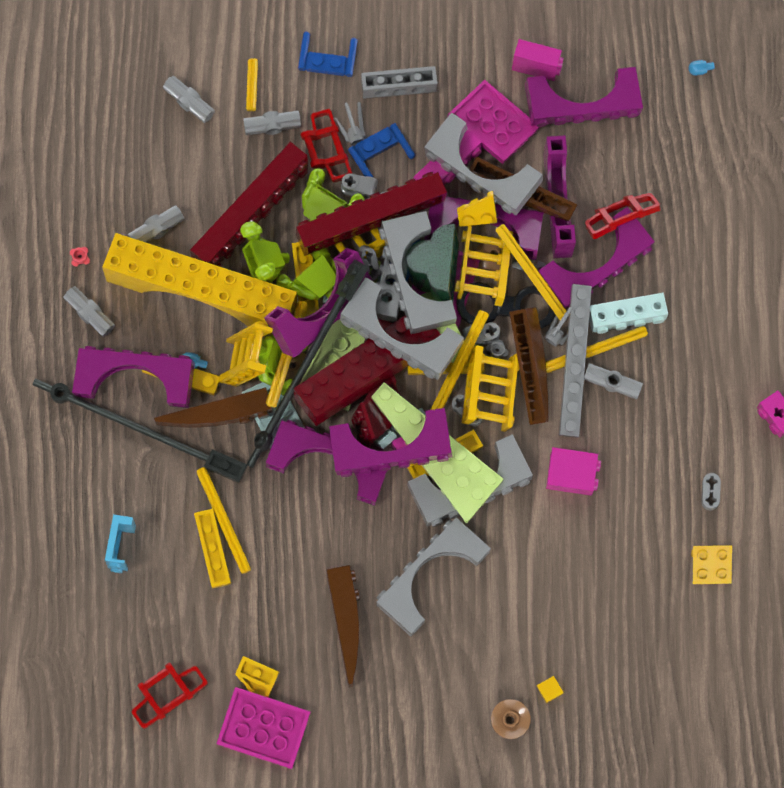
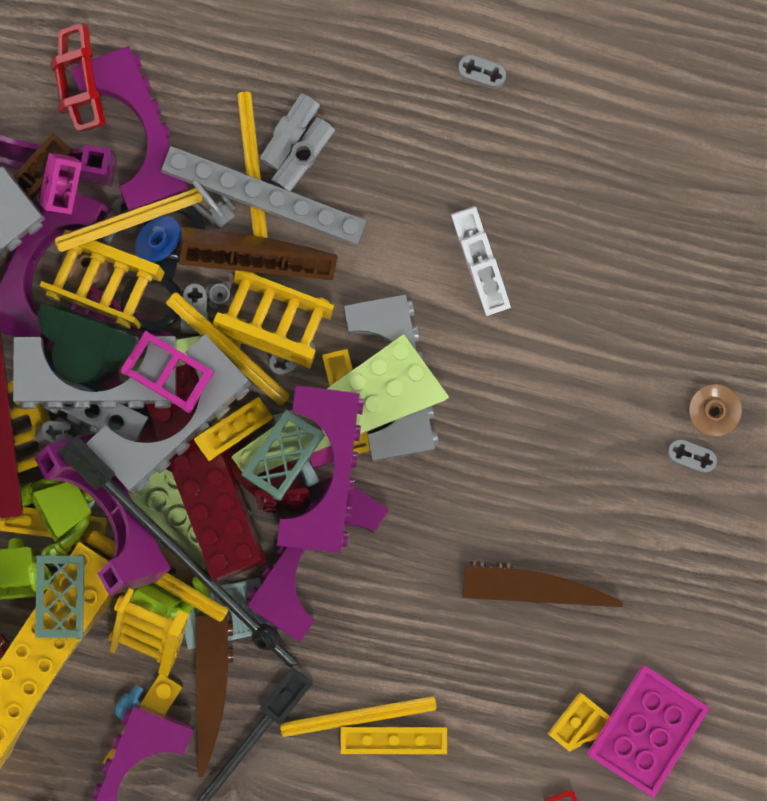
camera: 75 degrees left, 10 degrees up
(261, 271) = (41, 609): none -> sand green window
(391, 400) = (274, 435): none -> sand green window
(404, 378) = (233, 428): none -> yellow plate
(417, 314) = (157, 388): none -> dark pink window
(453, 541) = (524, 513): light grey arch -> none
(477, 712) = (689, 462): none -> light grey beam
(478, 211) = (28, 268): yellow wing -> none
(523, 295) = (158, 239): none -> blue dish
(542, 216) = (60, 183): none -> dark pink brick
(550, 689) = (687, 350): yellow tile -> none
(572, 524) = (480, 261): none -> white slope
(573, 471) = (411, 241): dark pink brick -> none
(627, 367) = (289, 131): none -> light grey piece
(628, 312) = (214, 108): light aqua brick -> none
(712, 564) = (578, 98): yellow hinge -> none

